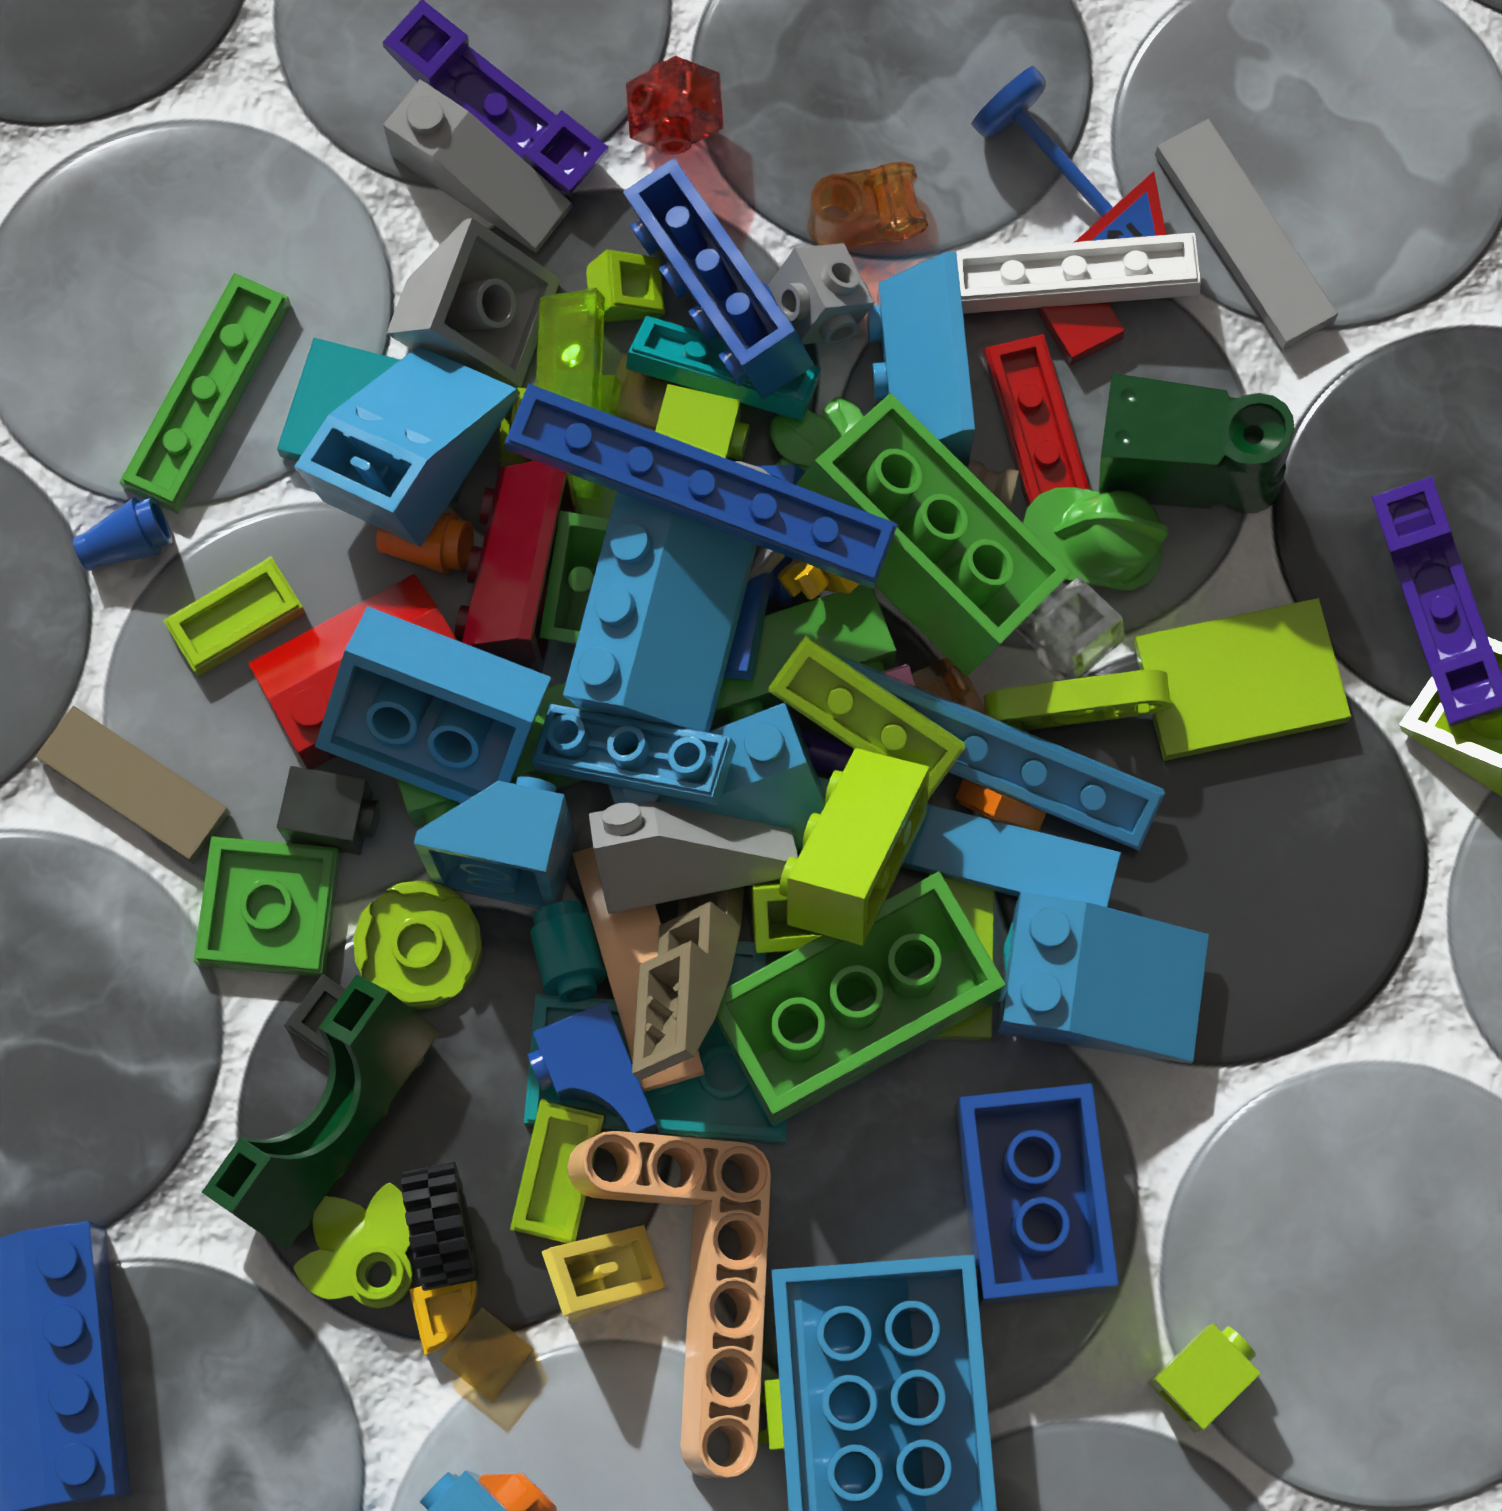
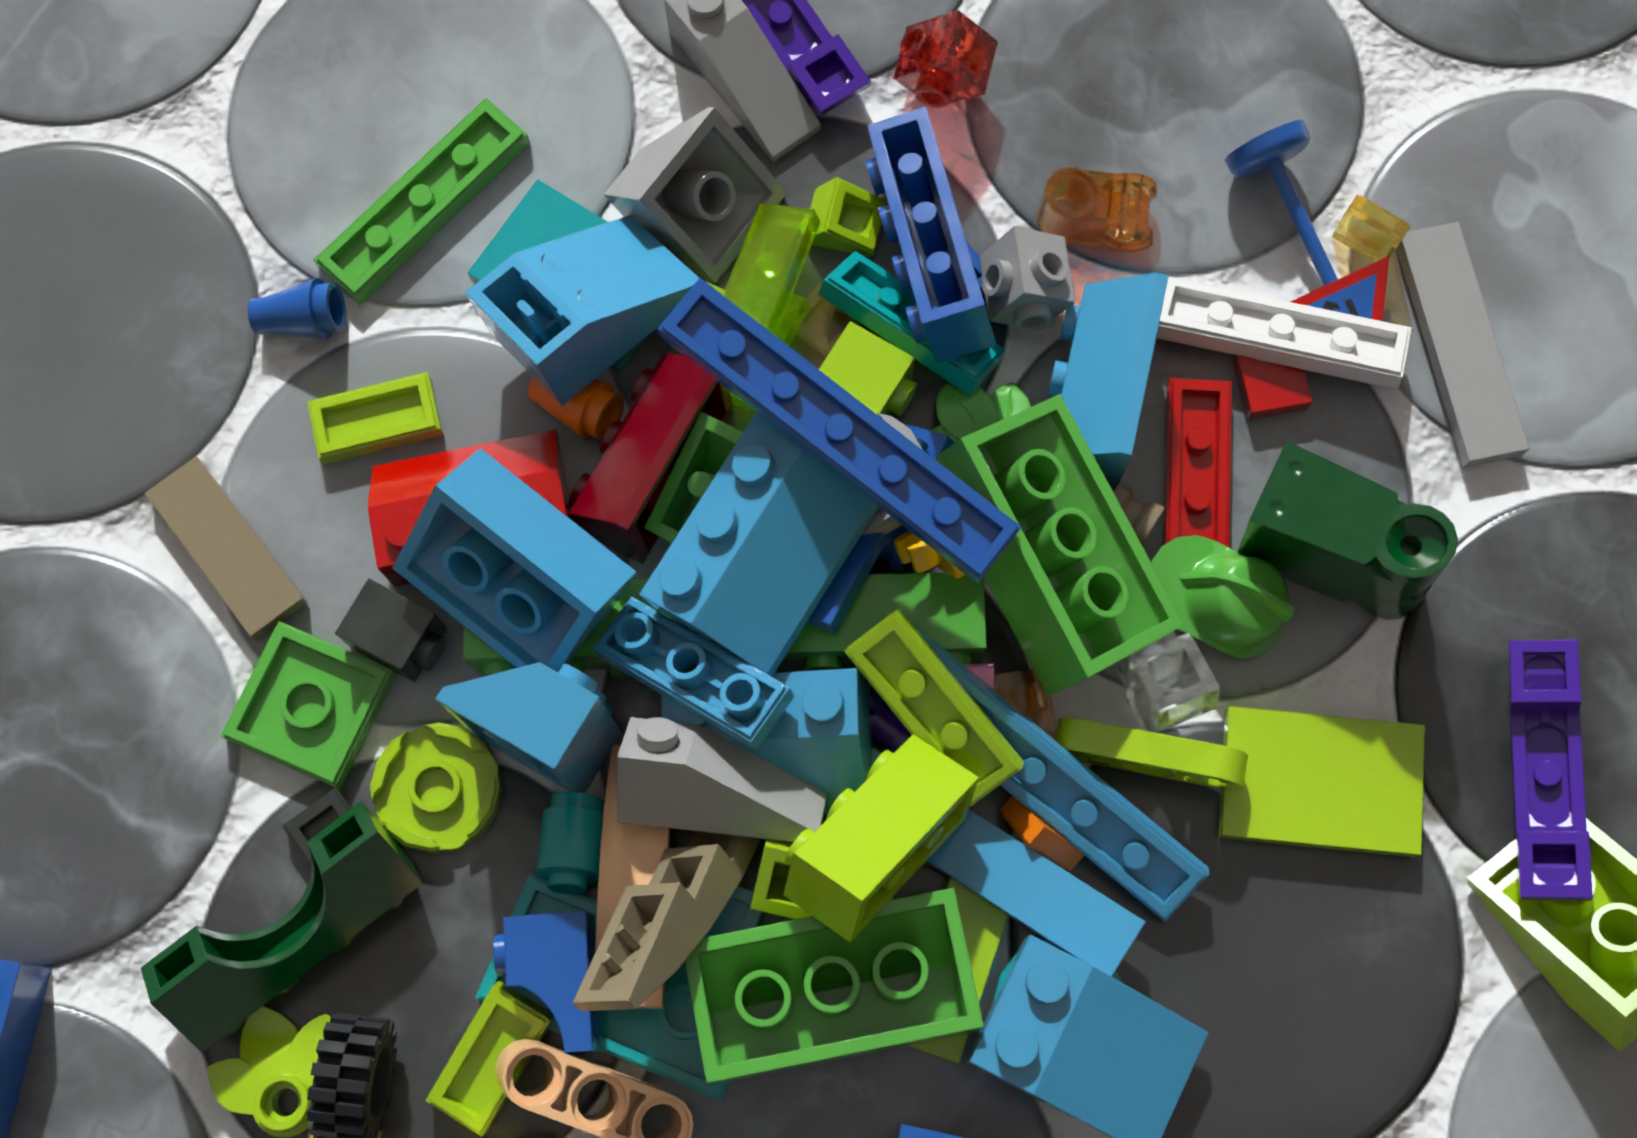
camera: 20 degrees right, 0 degrees up
(1128, 151) = (1370, 229): none -> clear yellow tile

